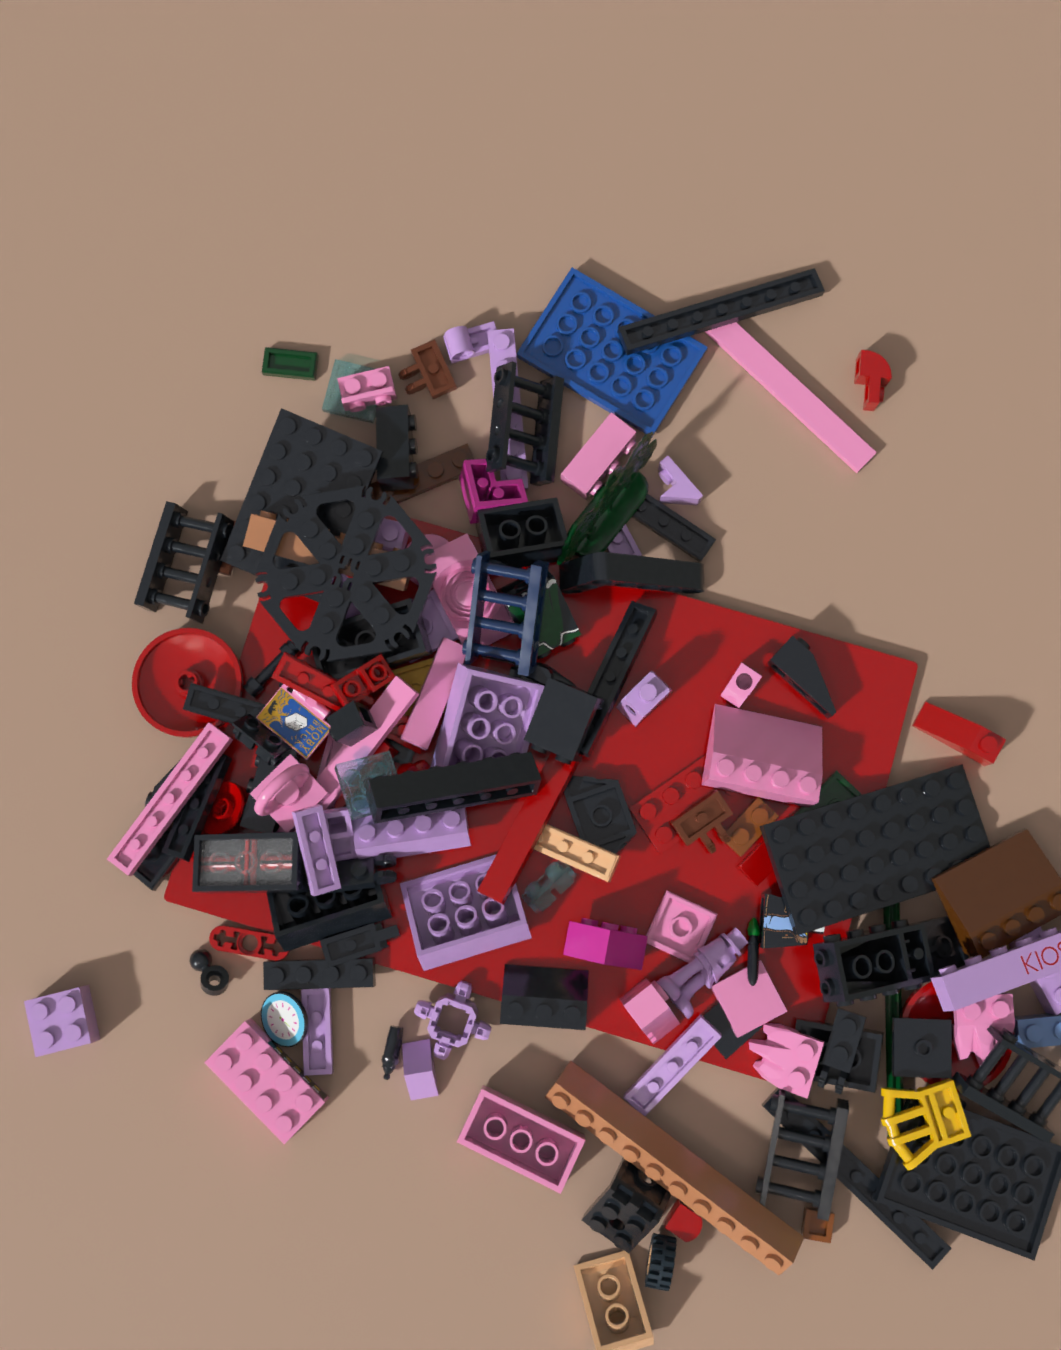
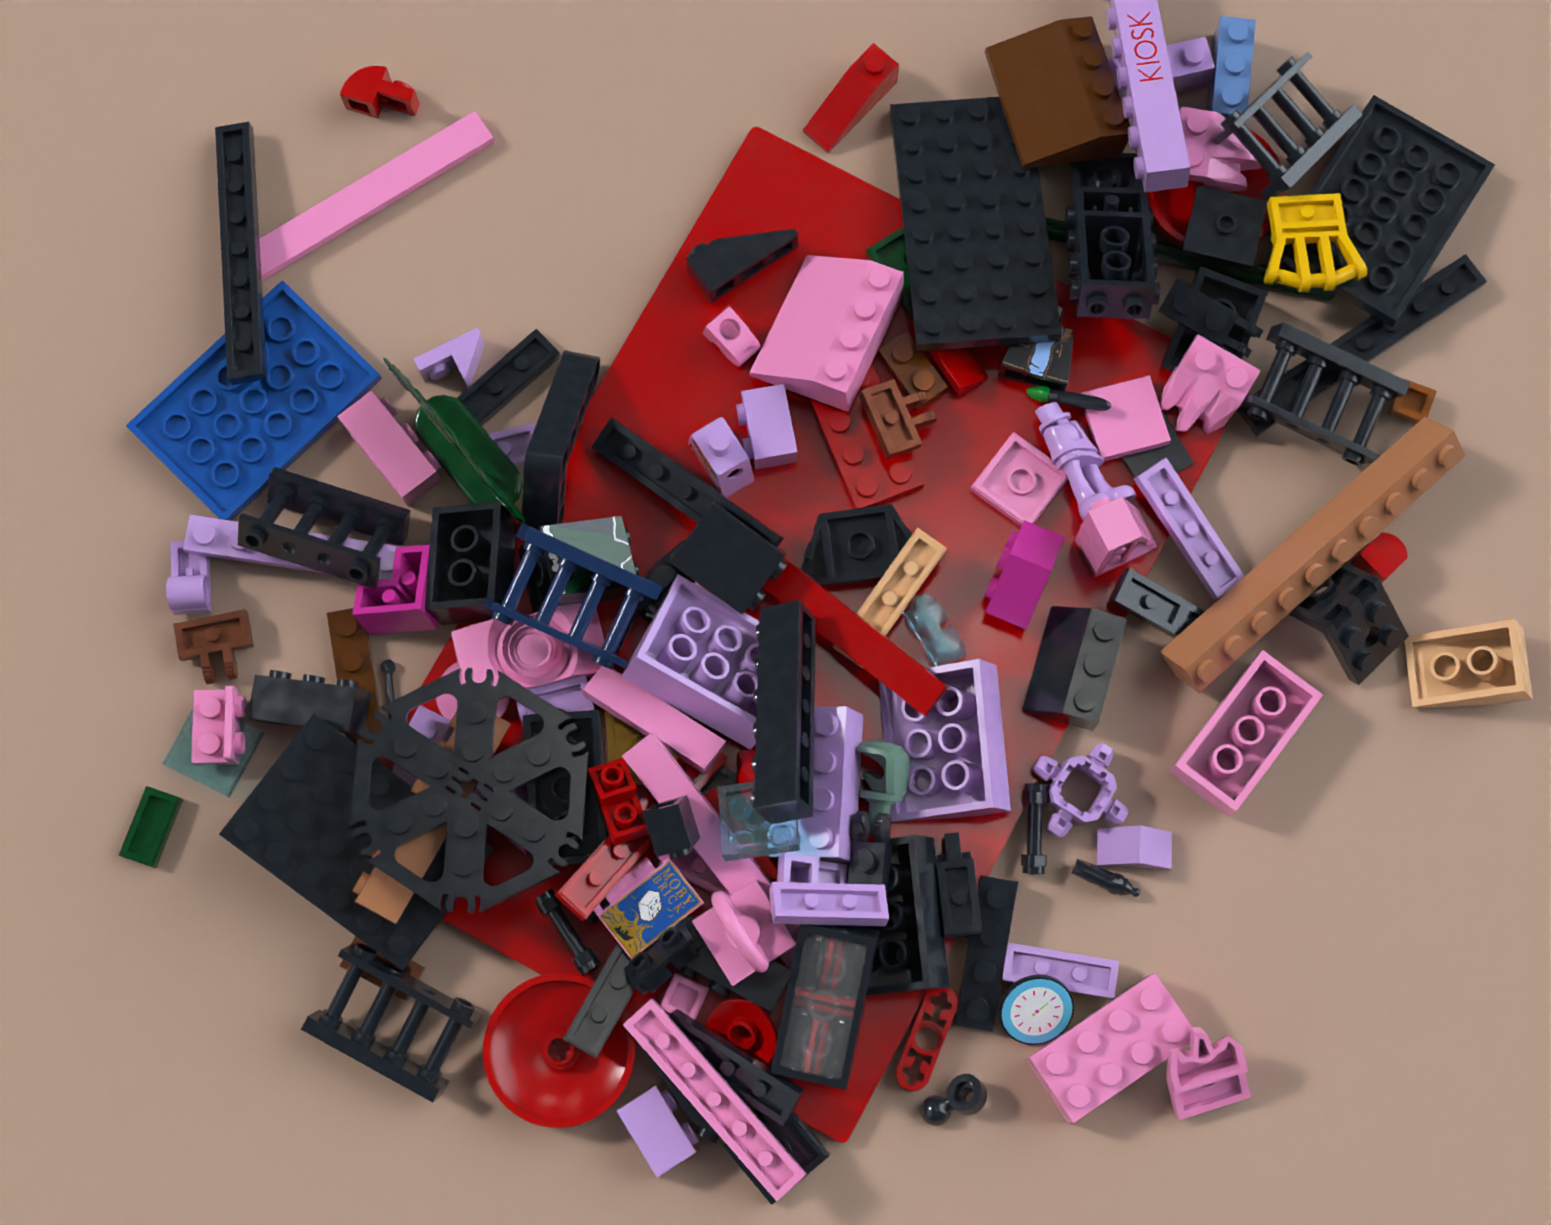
camera: 80 degrees left, 5 degrees down
(146, 765) = (658, 1131): none -> lavender brick
(242, 762) = (685, 996): none -> bright pink tile
(259, 1155) = (1206, 1075): none -> bright pink plate
(420, 873) = (892, 785): none -> sand green piece
(438, 497) = (388, 668): none -> black hinge
(440, 987) = (1034, 861): none -> black bar
(607, 1049) = (1153, 603): none -> hinge
(660, 1262) = (1426, 594): black wheel -> none
(676, 727) = (768, 426): none -> lavender brick

